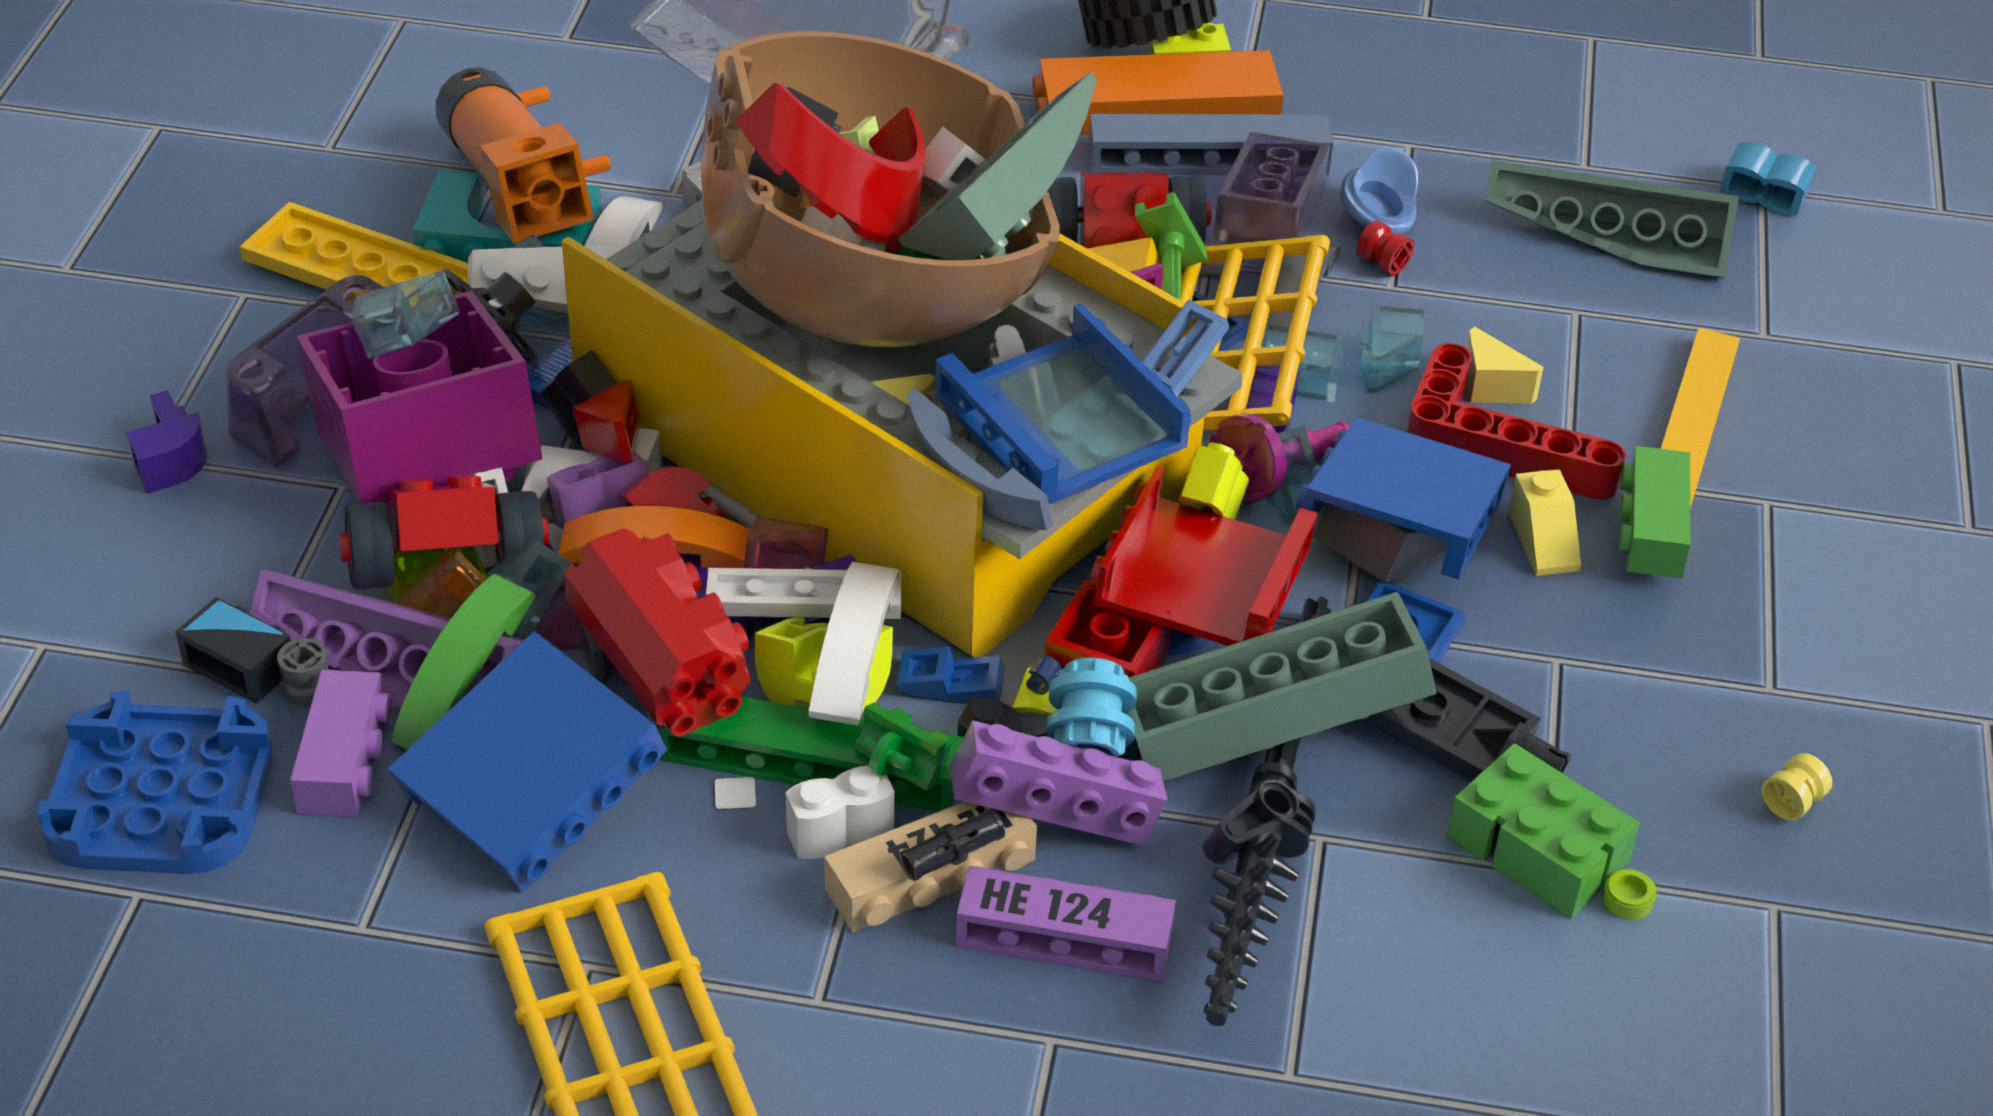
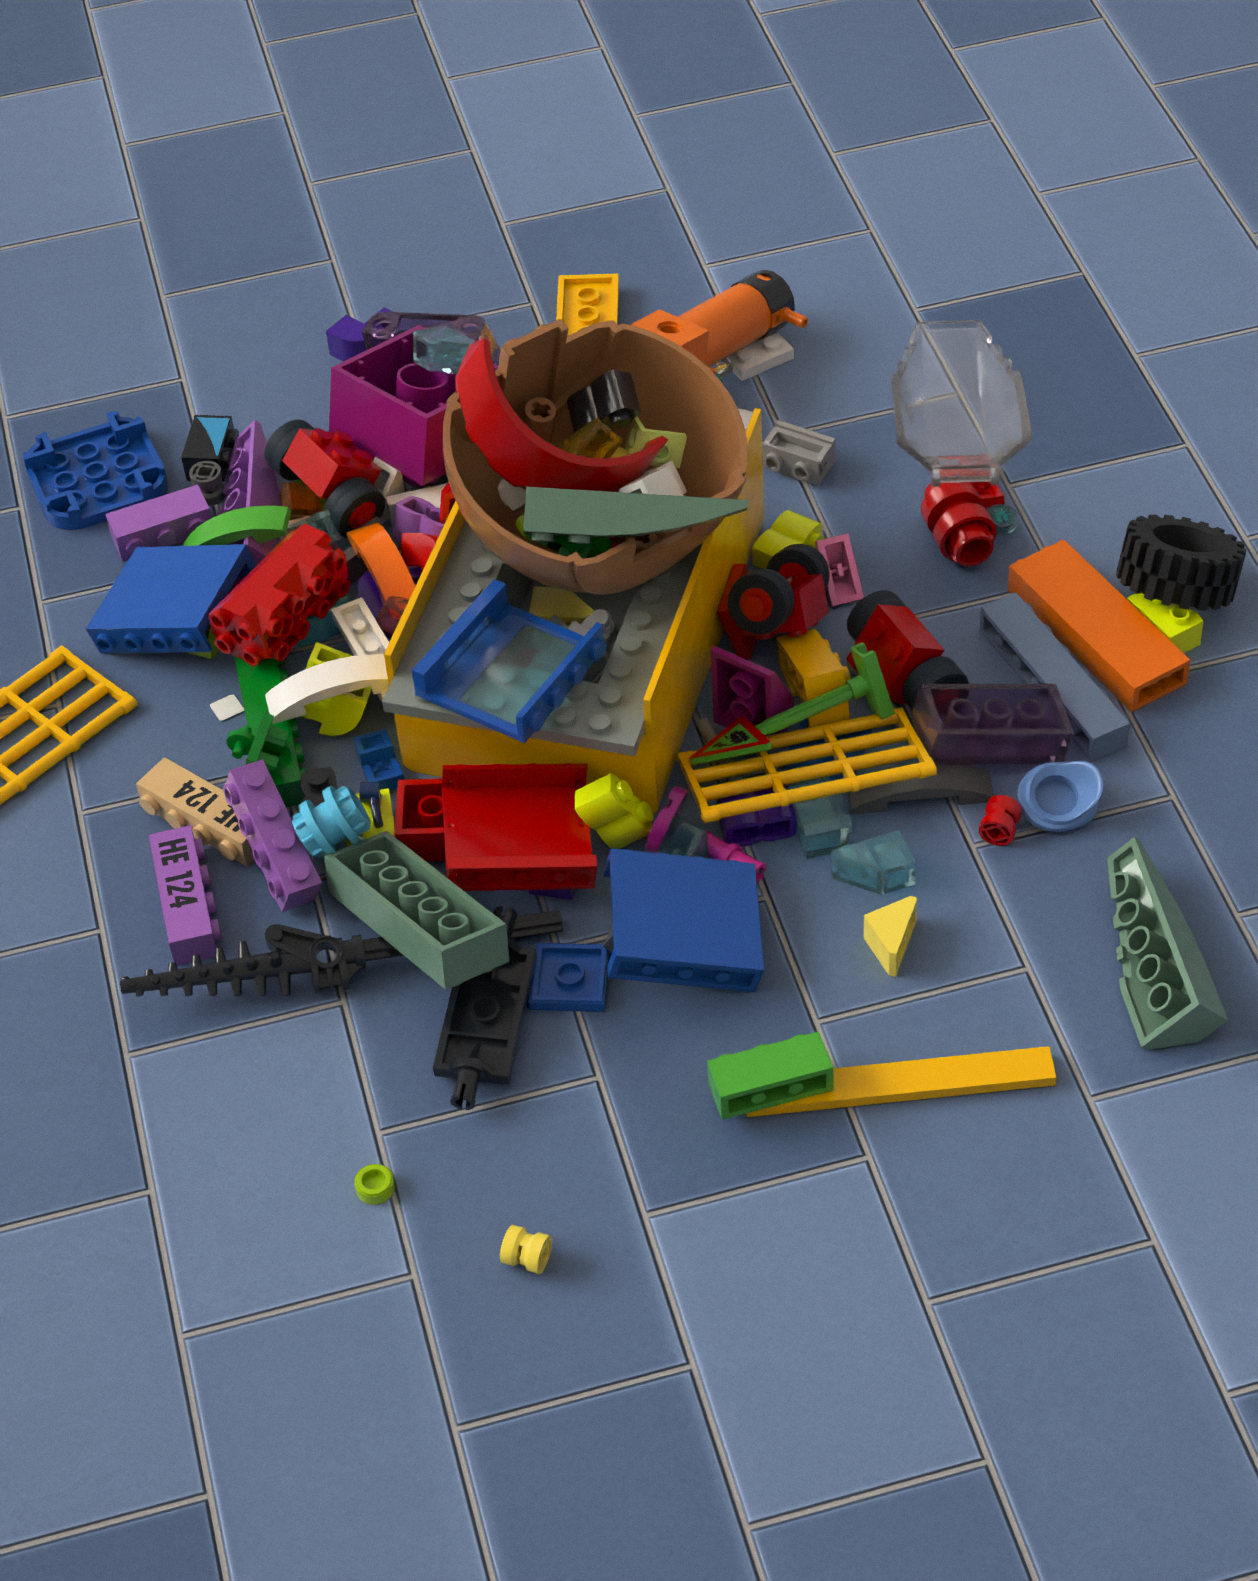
camera: 70 degrees right, 5 degrees up
(838, 812) = (209, 749): white brick -> none
(924, 859) = (210, 814): black pin -> none
(1006, 498) = (432, 613): sand blue slope -> none
(1216, 326) = (611, 698): medium blue tile -> none
(1437, 413) = (806, 918): red beam -> none
(1545, 522) = (728, 1017): light yellow slope -> none
(1552, 830) = (394, 1108): bright green piece -> none

